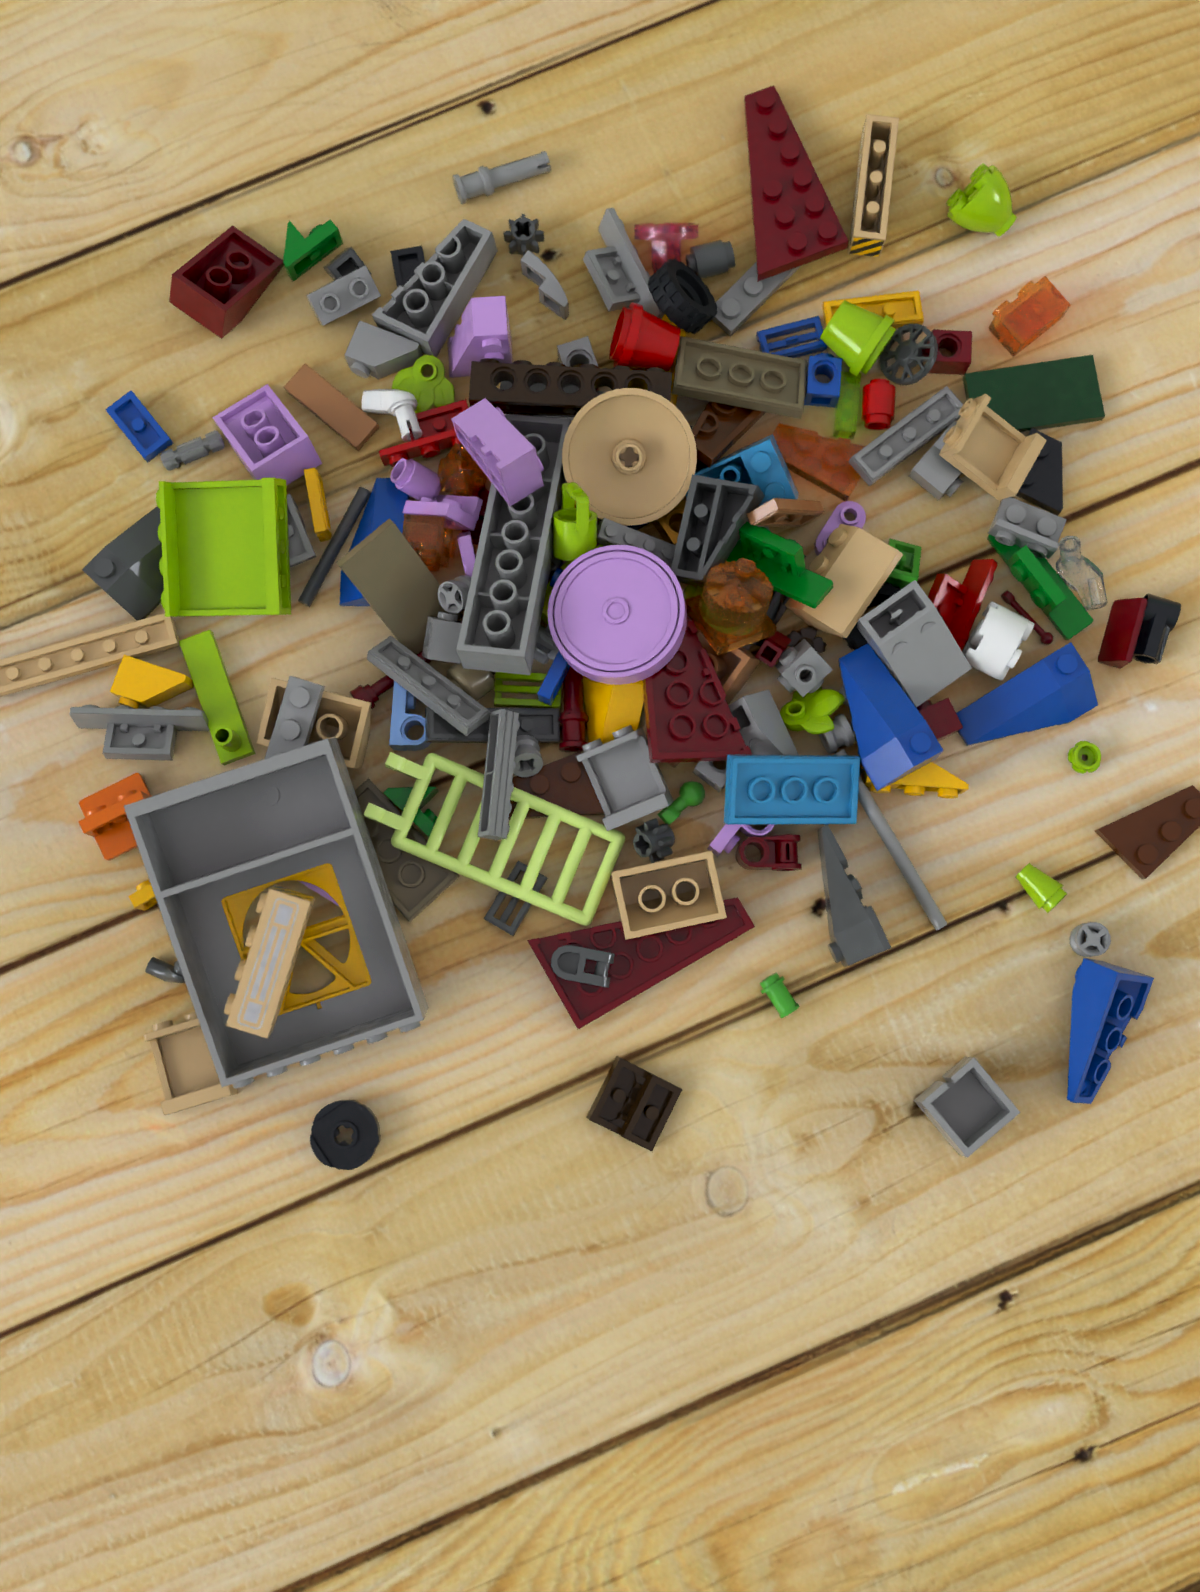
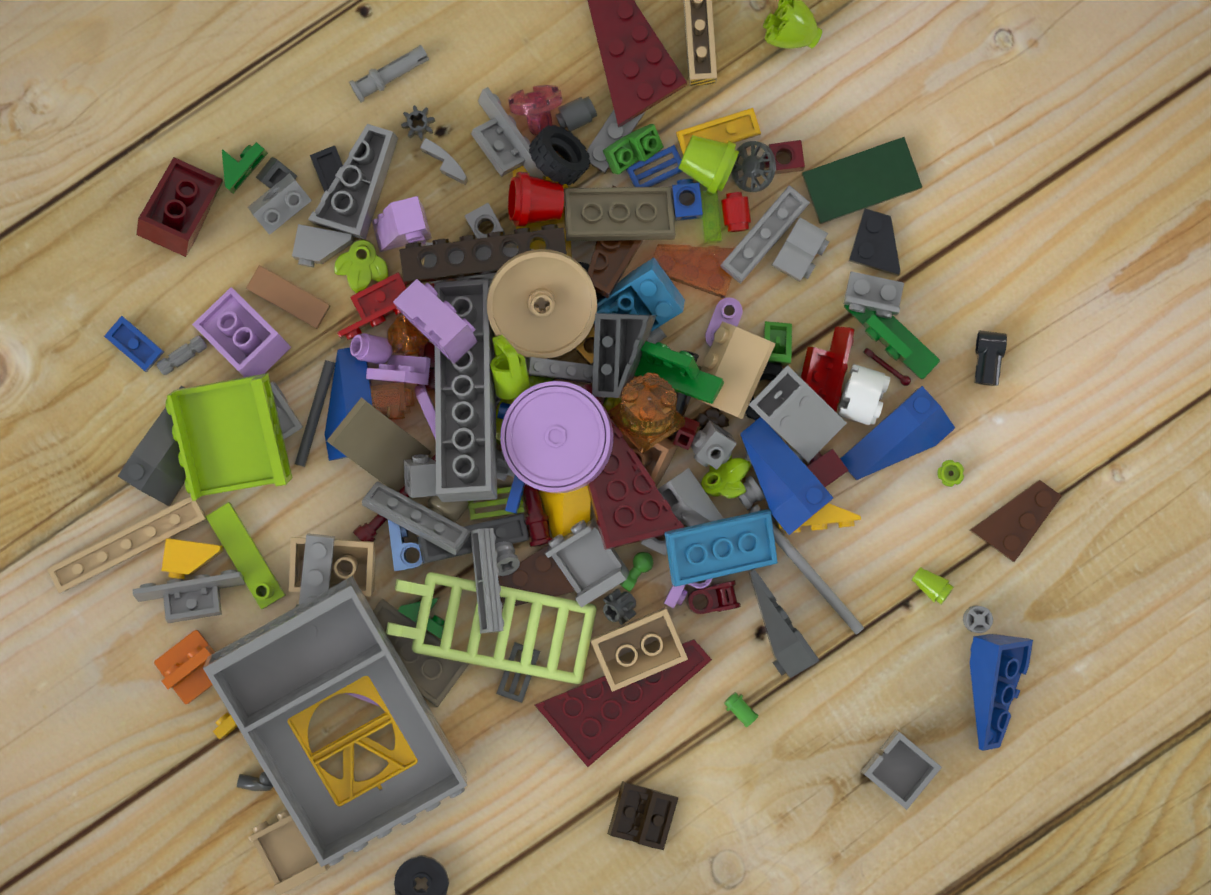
camera: 10 degrees left, 5 degrees up
(269, 962) = (340, 764): tan brick -> none
(318, 504) = (295, 382): yellow tile -> none
(397, 403) = (341, 287): white arm -> none
(454, 593) = (424, 440): light grey wheel -> none
(569, 964) = (571, 717): dark grey plate -> none
(770, 310) = (633, 147): none -> bright green slope
(785, 513) = (676, 324): medium nougat tile -> none
(990, 449) = (832, 238): tan panel -> none
(1028, 316) = (846, 115): clear orange brick -> none
(1081, 574) = (923, 324): clear arm -> none
(1122, 632) = (964, 365): dark red slope -> none

